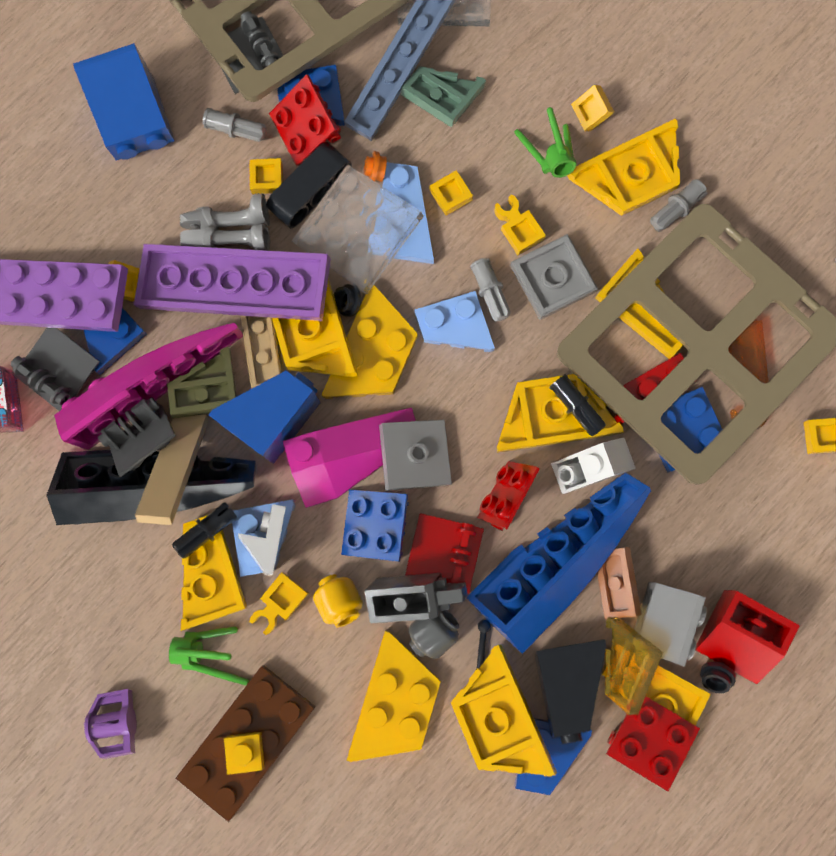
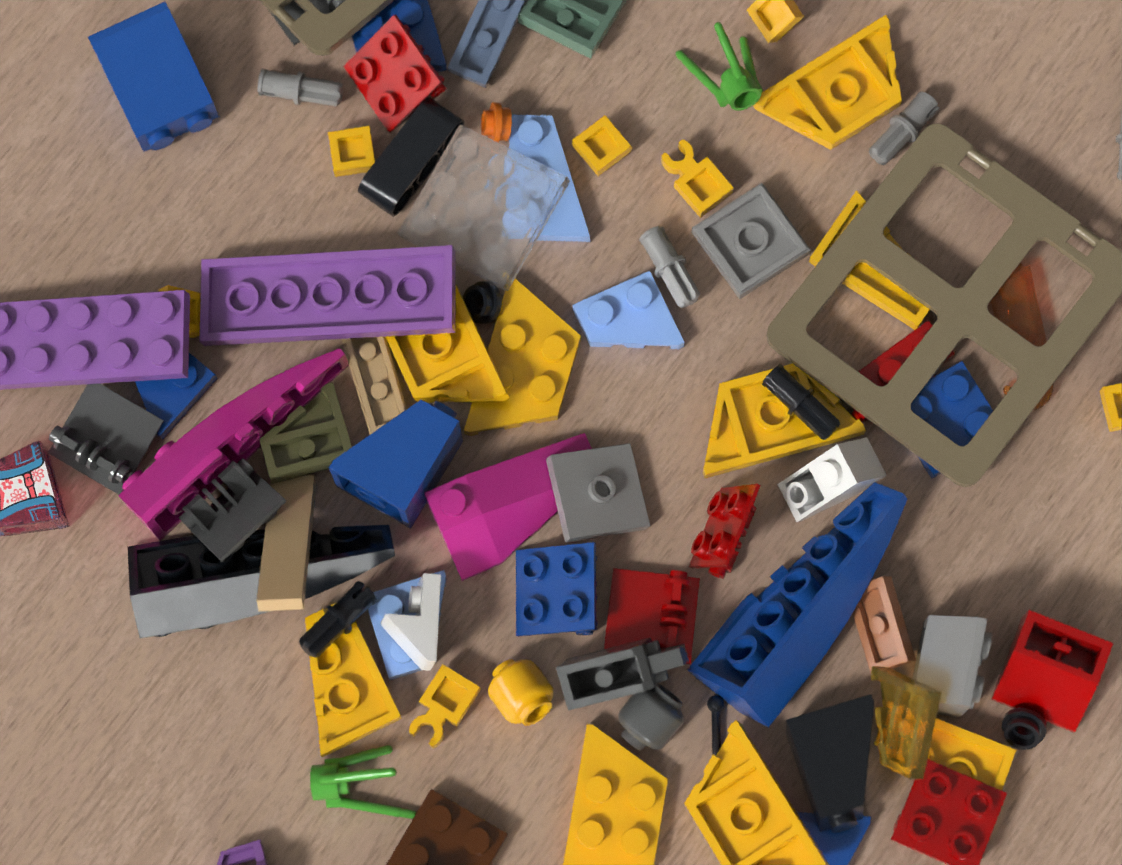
camera: 10 degrees left, 5 degrees down
(205, 224) = (285, 219): light grey piece -> none

